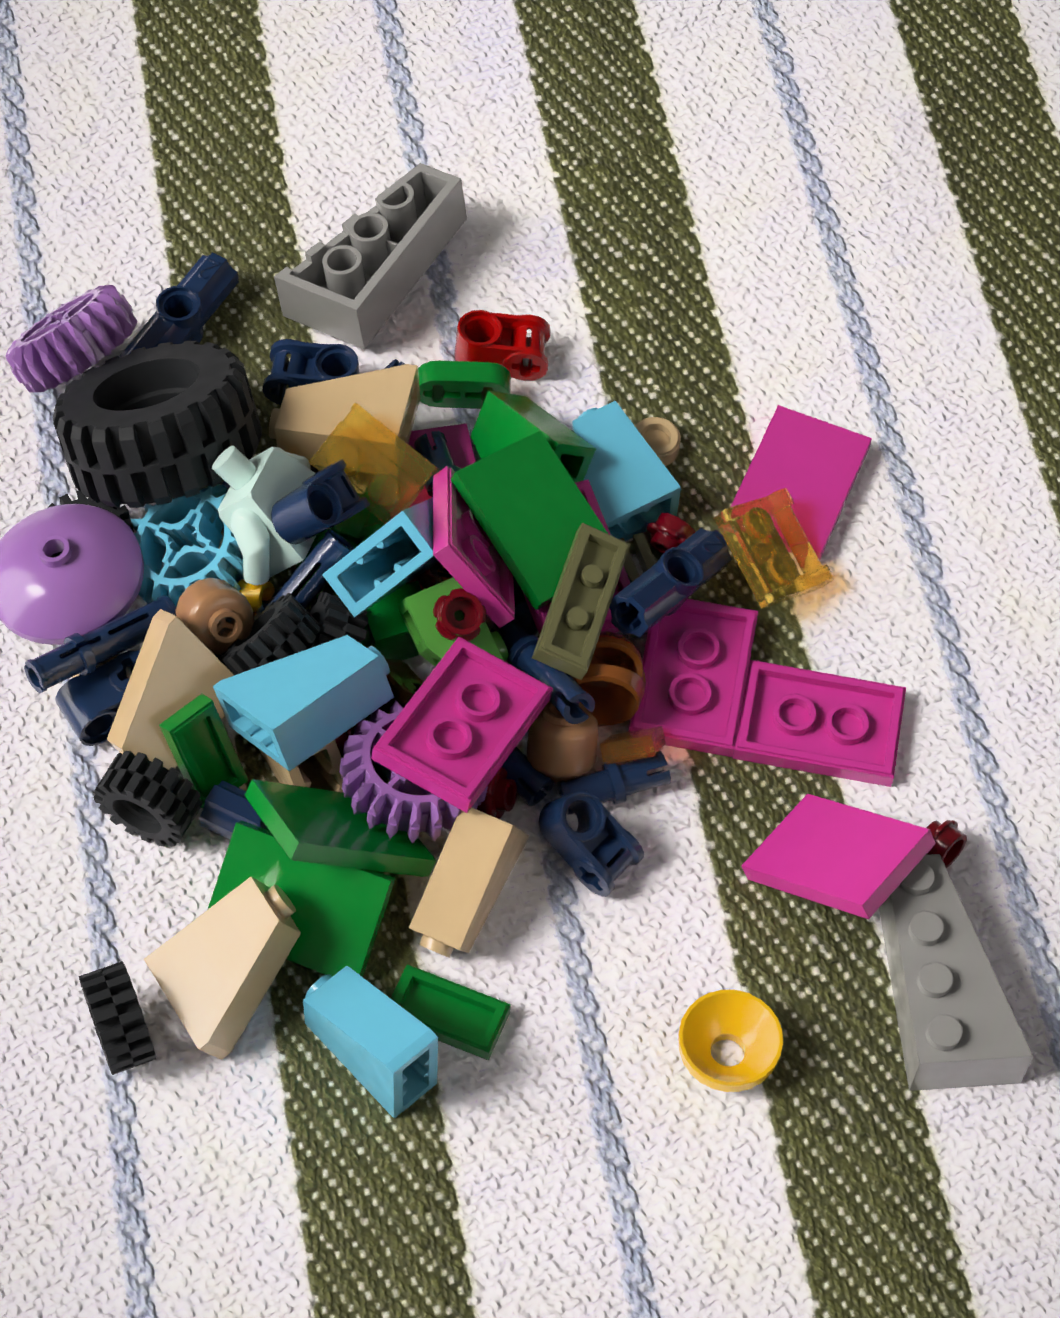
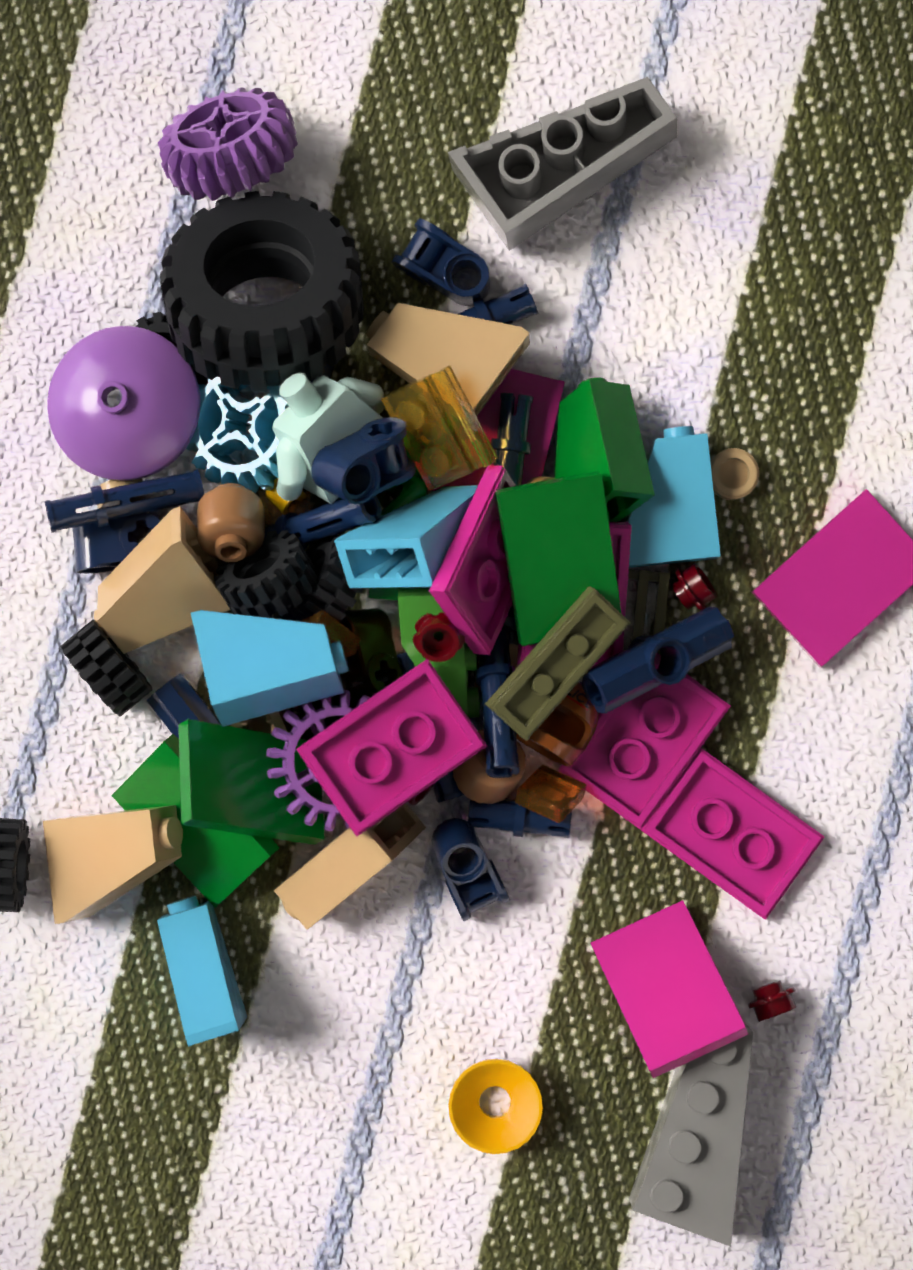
camera: 30 degrees right, 30 degrees up
(188, 306) = (376, 126): dark blue piece -> none
(202, 747) = (169, 644): green tile -> none
(452, 1011) = (281, 962): green tile -> none
(461, 383) = (581, 337): green beam -> none
(503, 341) = (643, 311): red piece -> none
(763, 554) = (760, 654): clear yellow plate -> none

